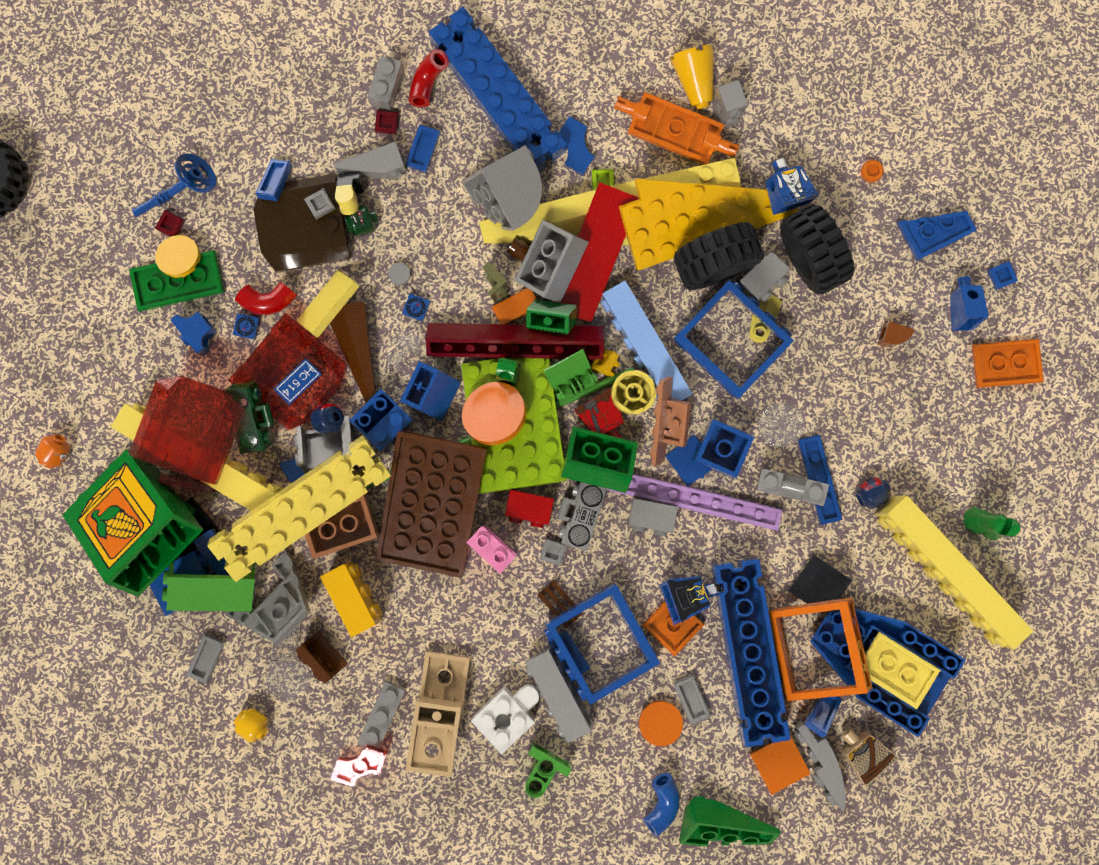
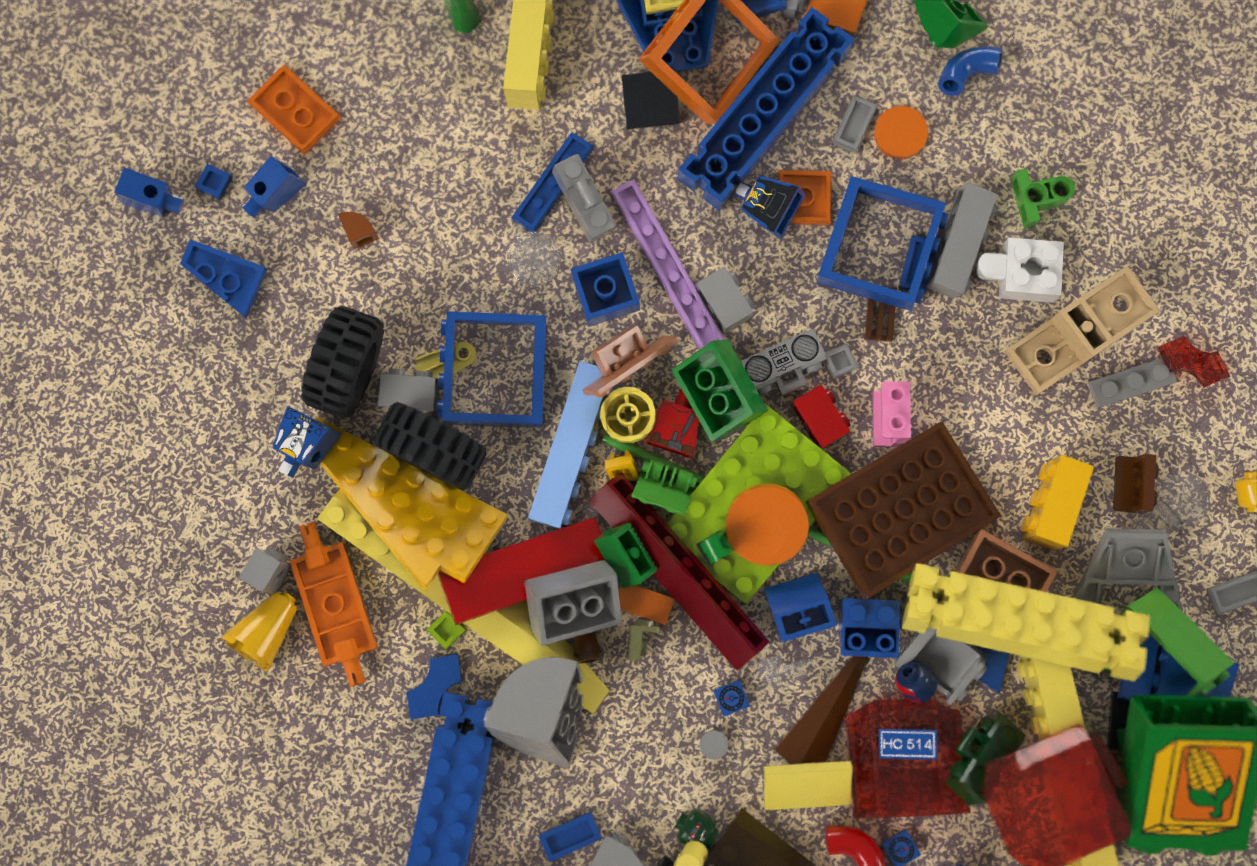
camera: 125 degrees left, 5 degrees down
(682, 462) = (650, 314): blue piece -> none
(872, 171) = (214, 383): orange tile -> none
(872, 493) = (523, 125): dark blue head -> none
(1033, 224) = (137, 189): none -> blue torso

